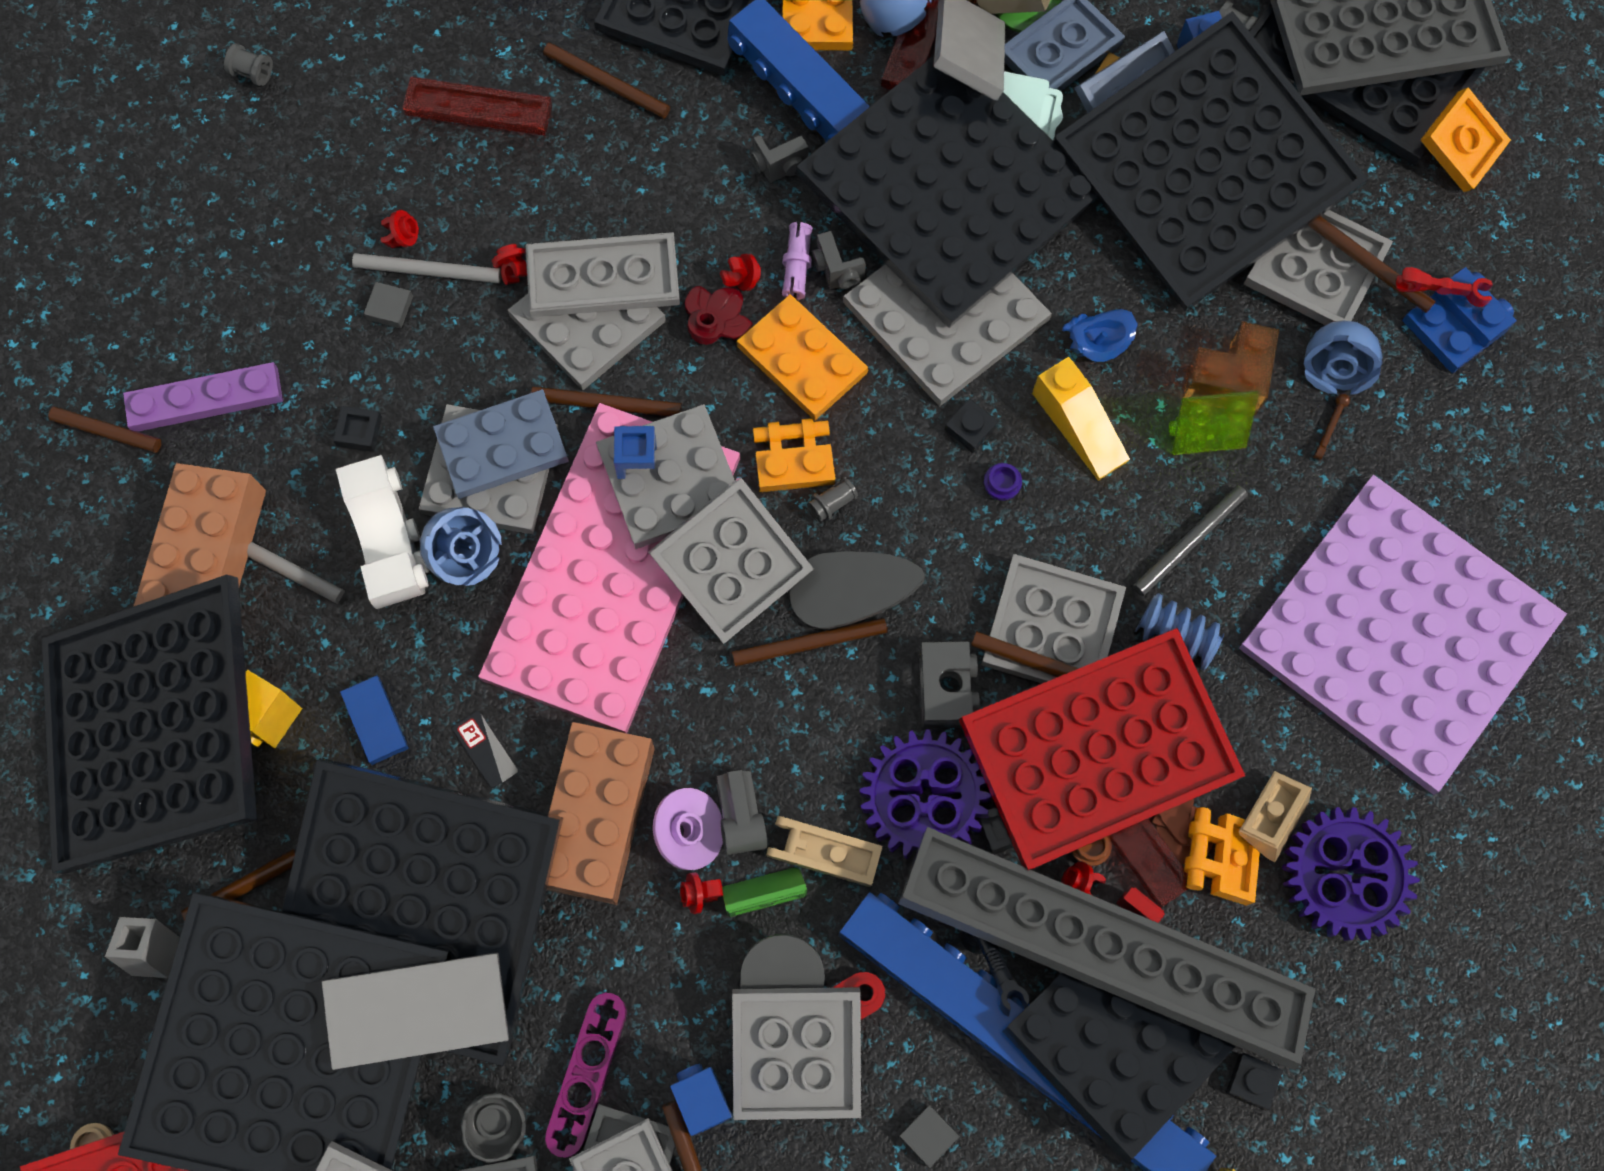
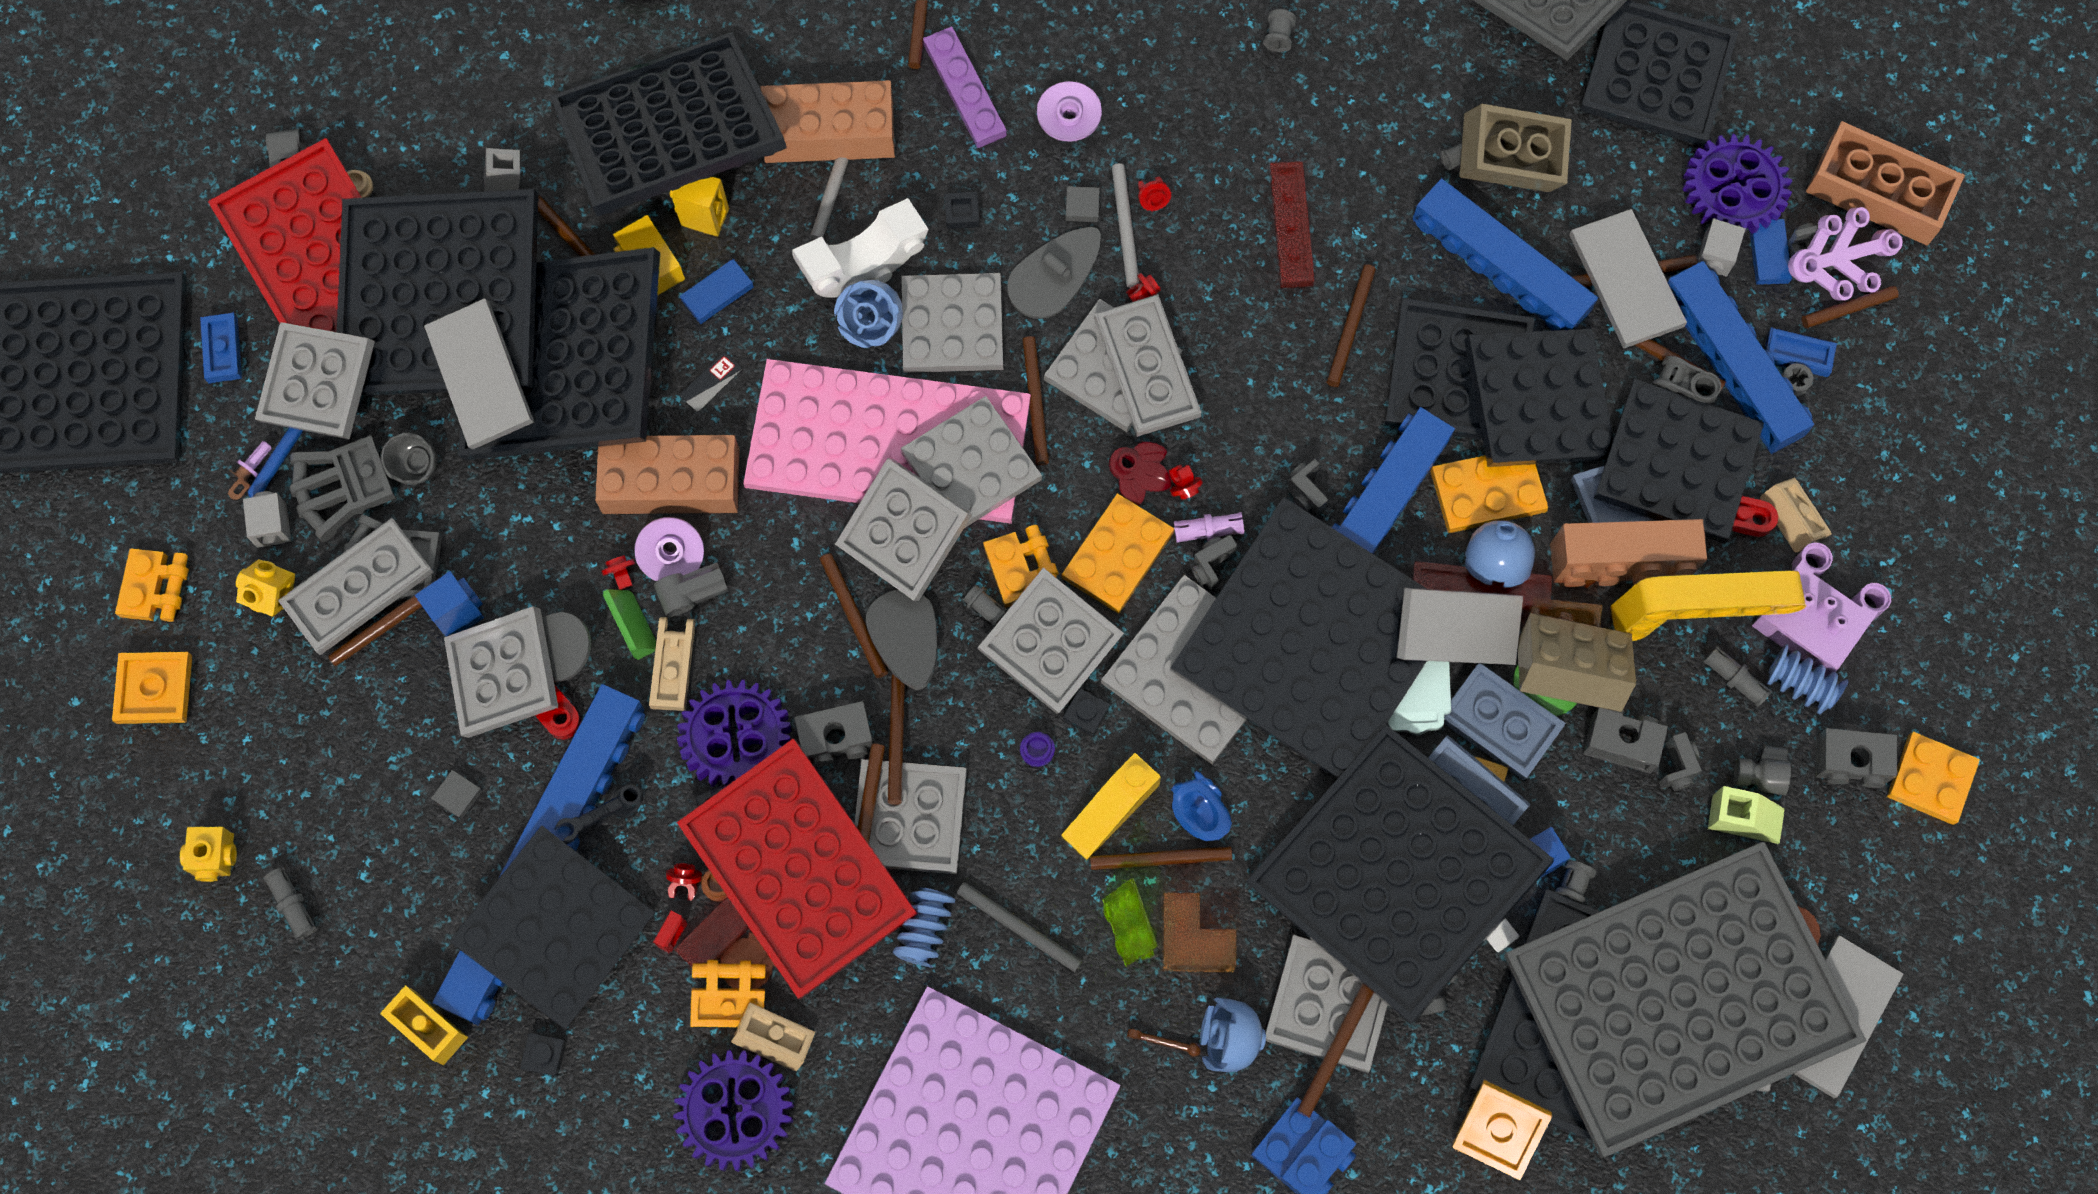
camera: 80 degrees right, 0 degrees up
(265, 280) = (1069, 99): none -> lavender dish
(288, 789) = (645, 235): none -> yellow brick
(461, 353) = (1053, 273): none -> dark grey shield
(500, 444) = (969, 322): sand blue plate -> none
(593, 1076) = (464, 516): magenta beam -> none
(634, 448) = (972, 420): blue panel -> none
(890, 439) = (1050, 641): none -> light grey plate
(969, 619) = (896, 741): none -> reddish brown bar
(1110, 948) = (624, 904): dark grey plate -> none
(1141, 388) = (1161, 858): none -> reddish brown bar
(1417, 280) = (1318, 1088): red piece -> none

